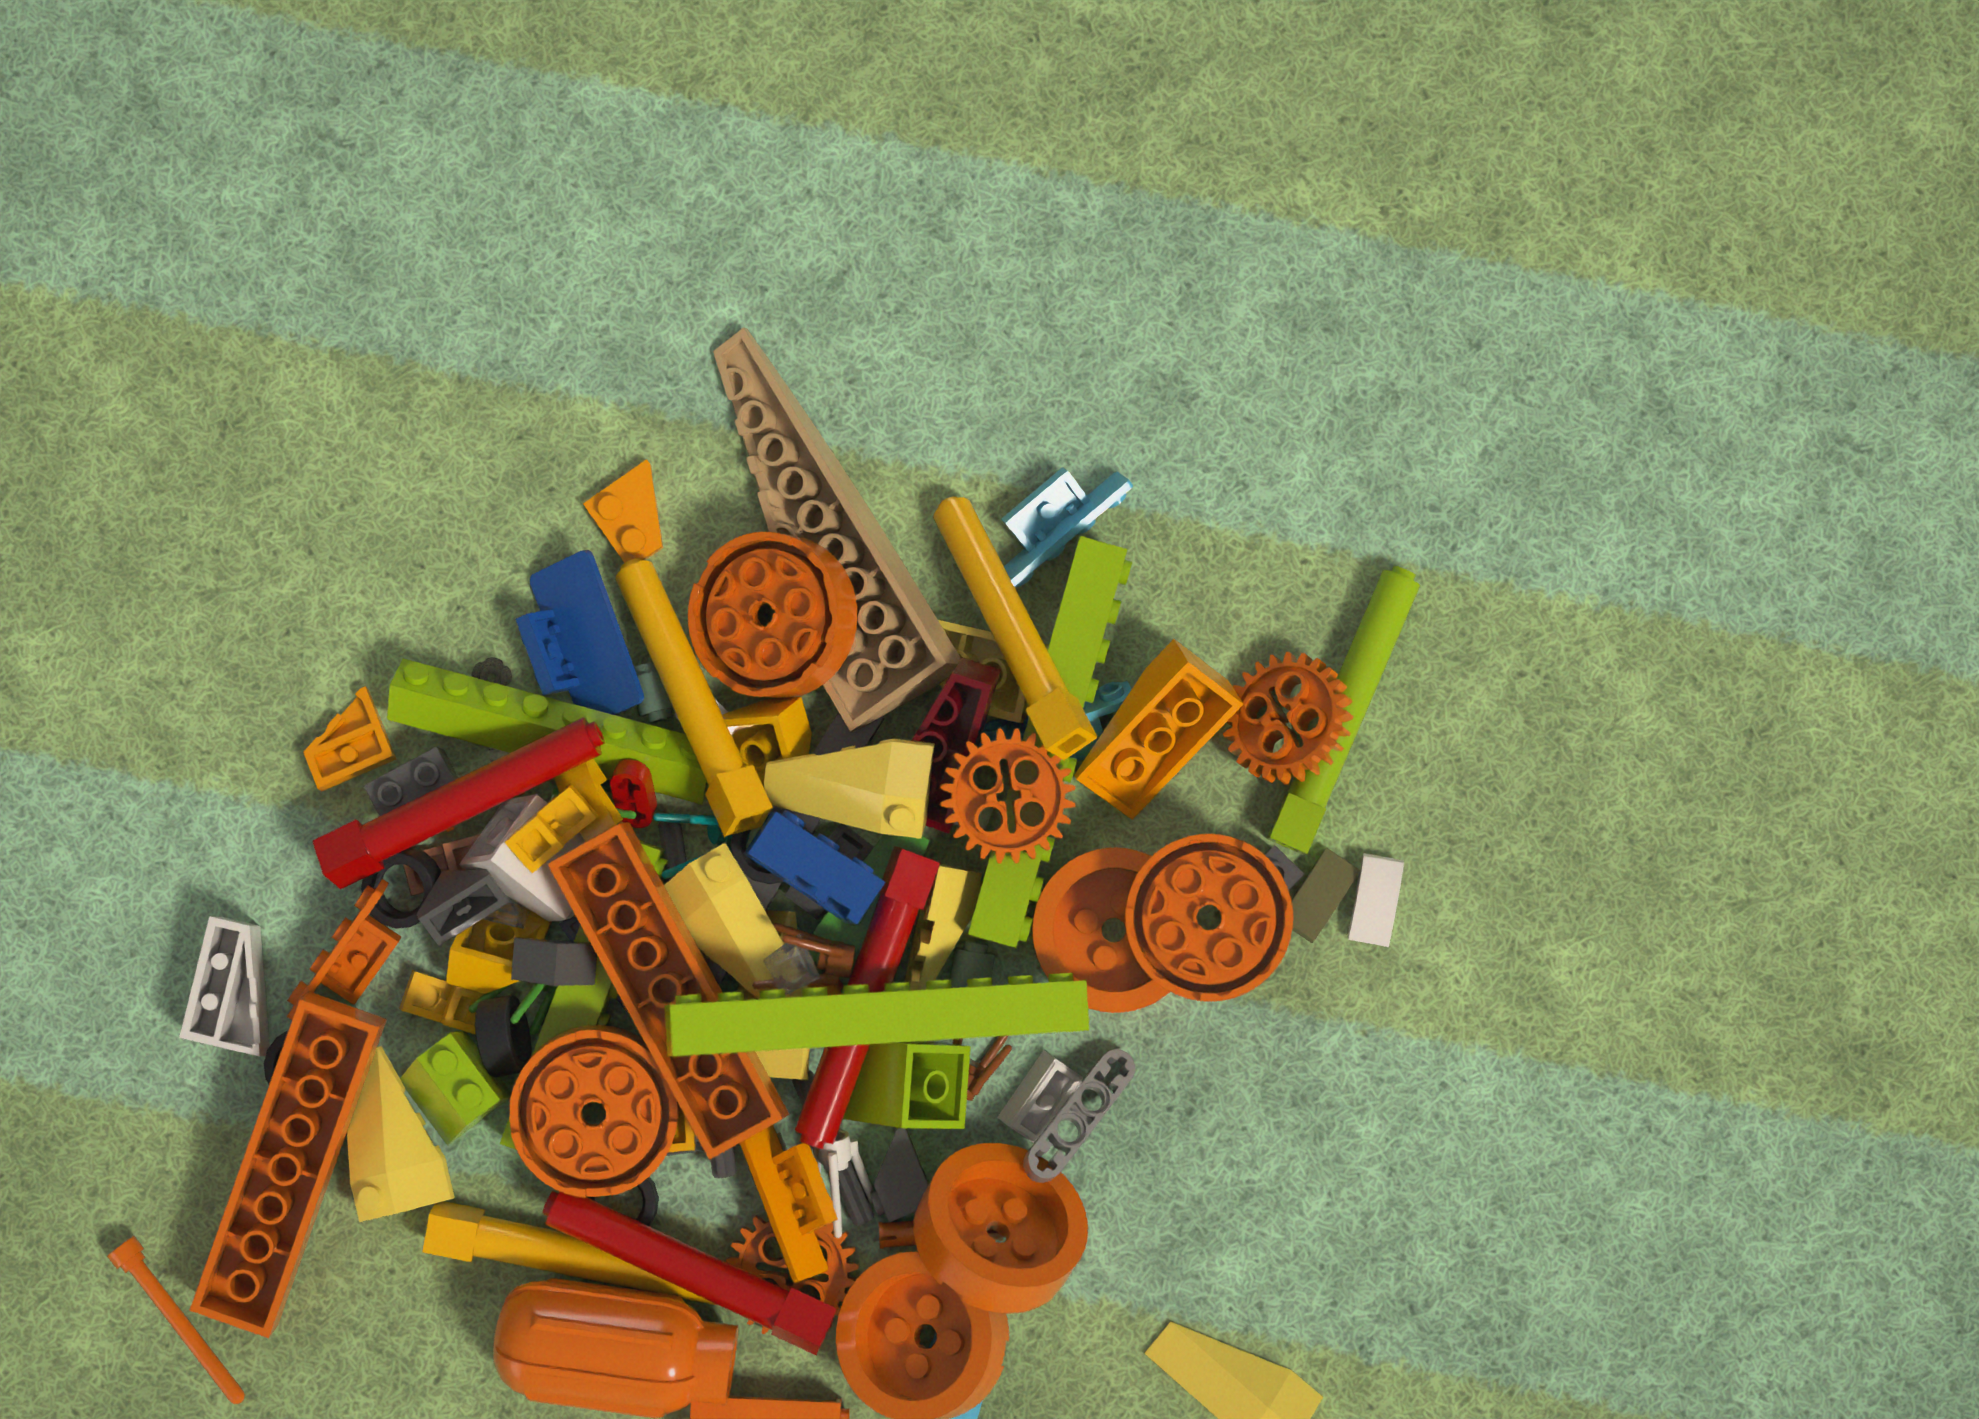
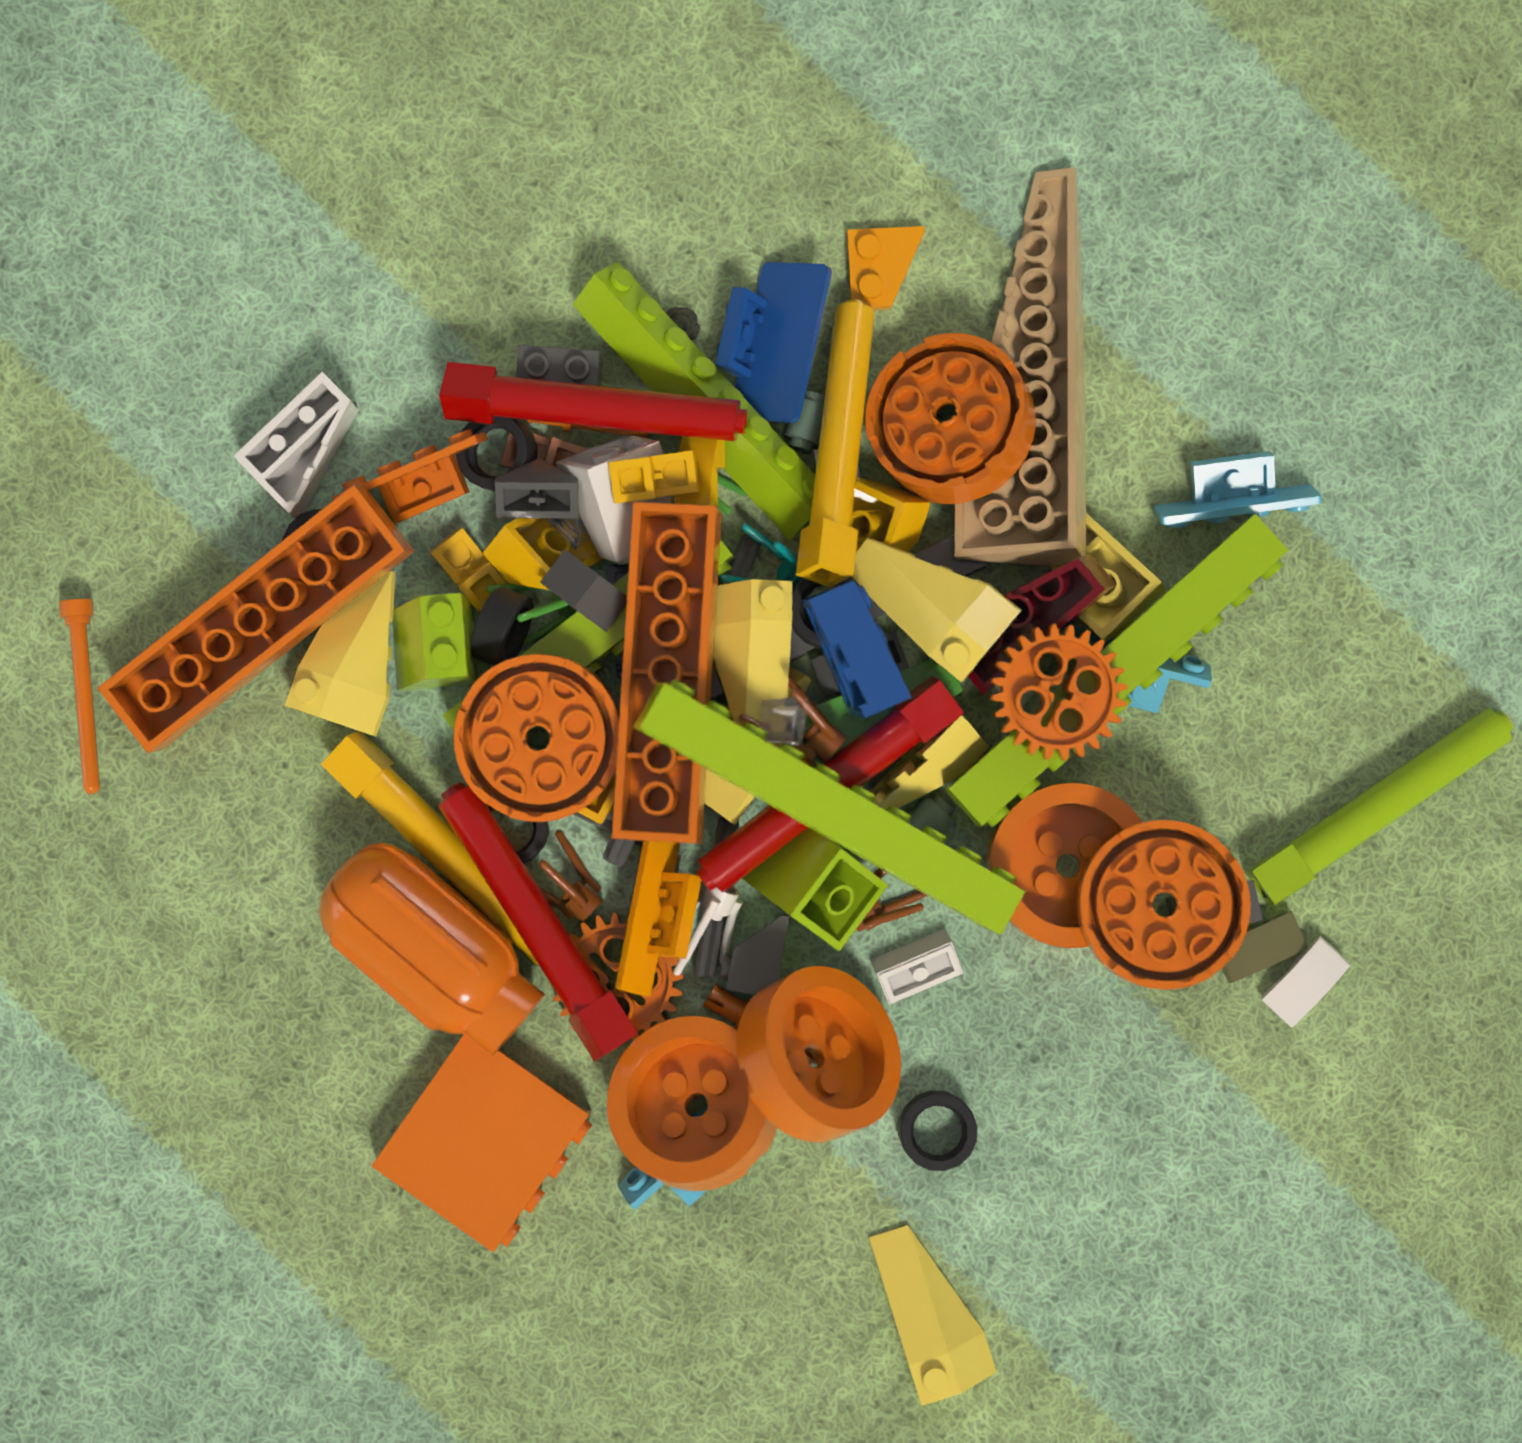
camera: 30 degrees right, 0 degrees up
(350, 744) = (528, 307): light orange wing -> none
(642, 793) = (745, 499): red beam -> none
(716, 1223) = (579, 898): none -> dark orange plant
(1051, 707) = (1145, 637): yellow brick -> none
(1077, 1113) = (942, 1001): light grey beam -> none
(1158, 729) = (1213, 720): light orange slope -> none
(1170, 1243) = (959, 1153): none -> black tyre
(1318, 697) = (1370, 779): orange gear -> none

